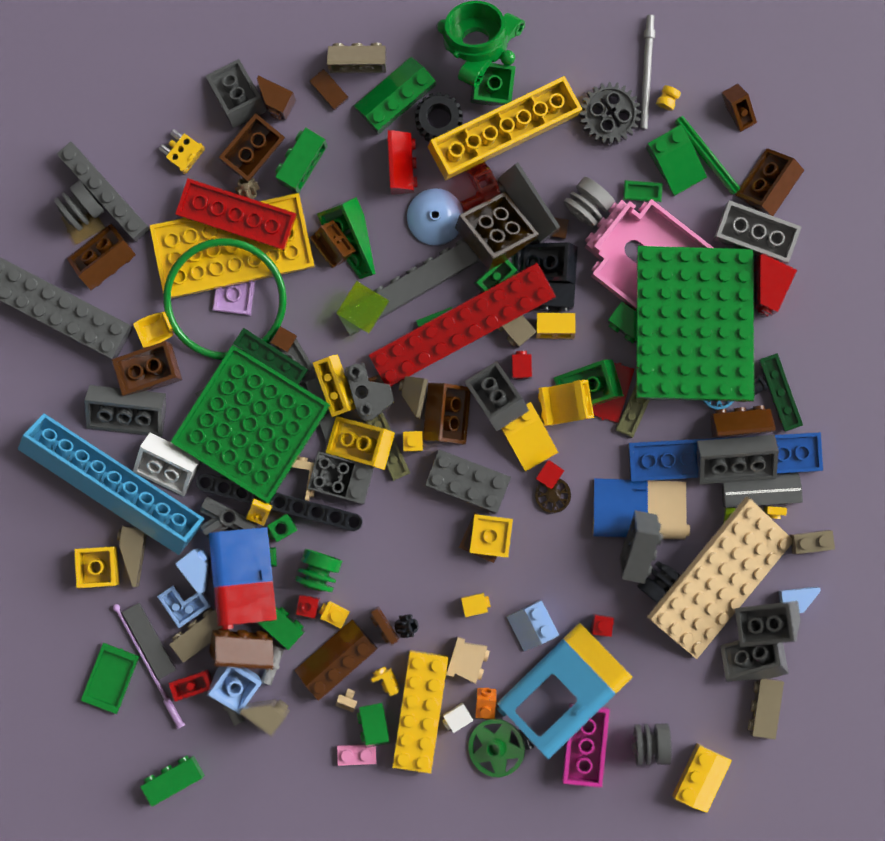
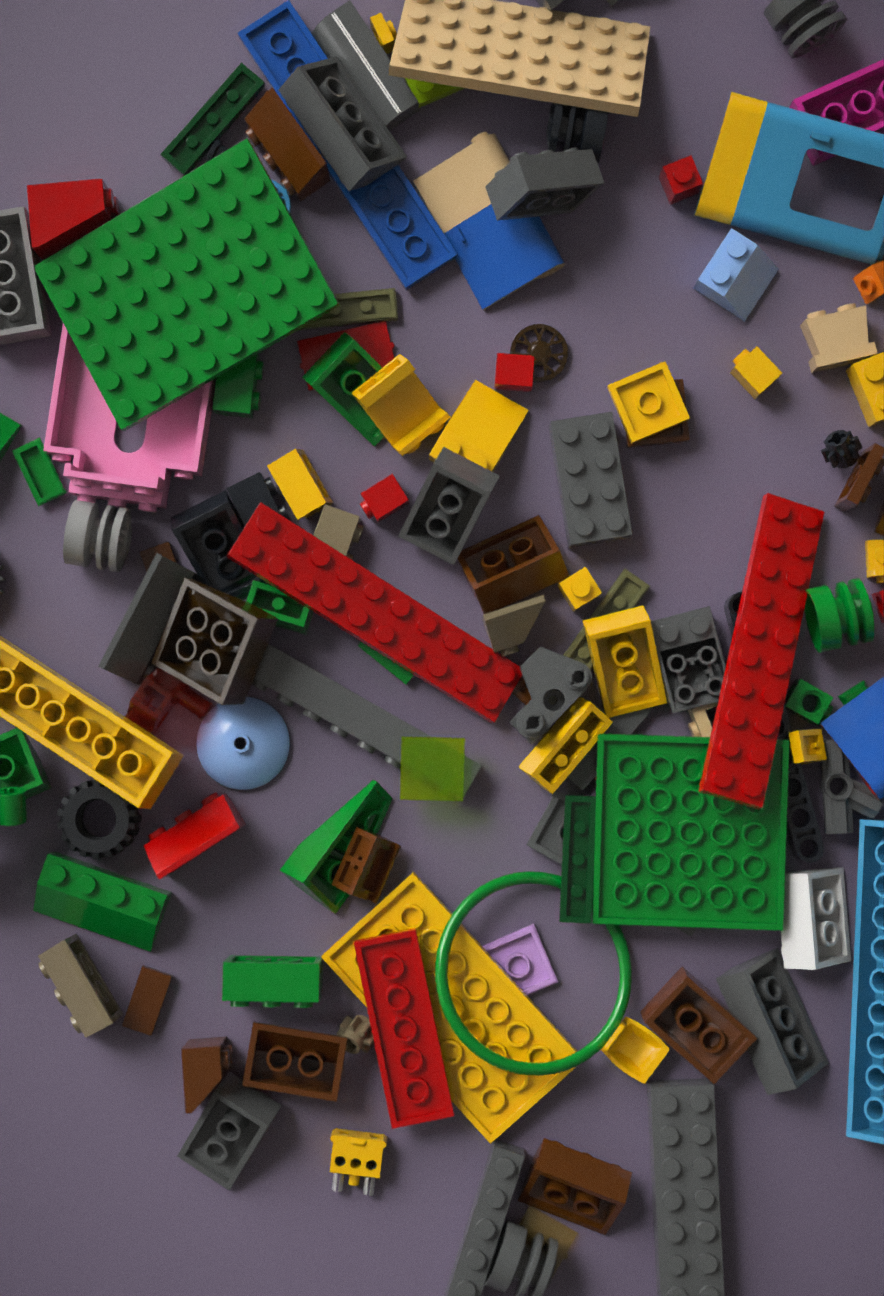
camera: 120 degrees left, 0 degrees up
(284, 339) = (541, 854): reddish brown tile -> none
(323, 517) = (761, 652): none -> red plate

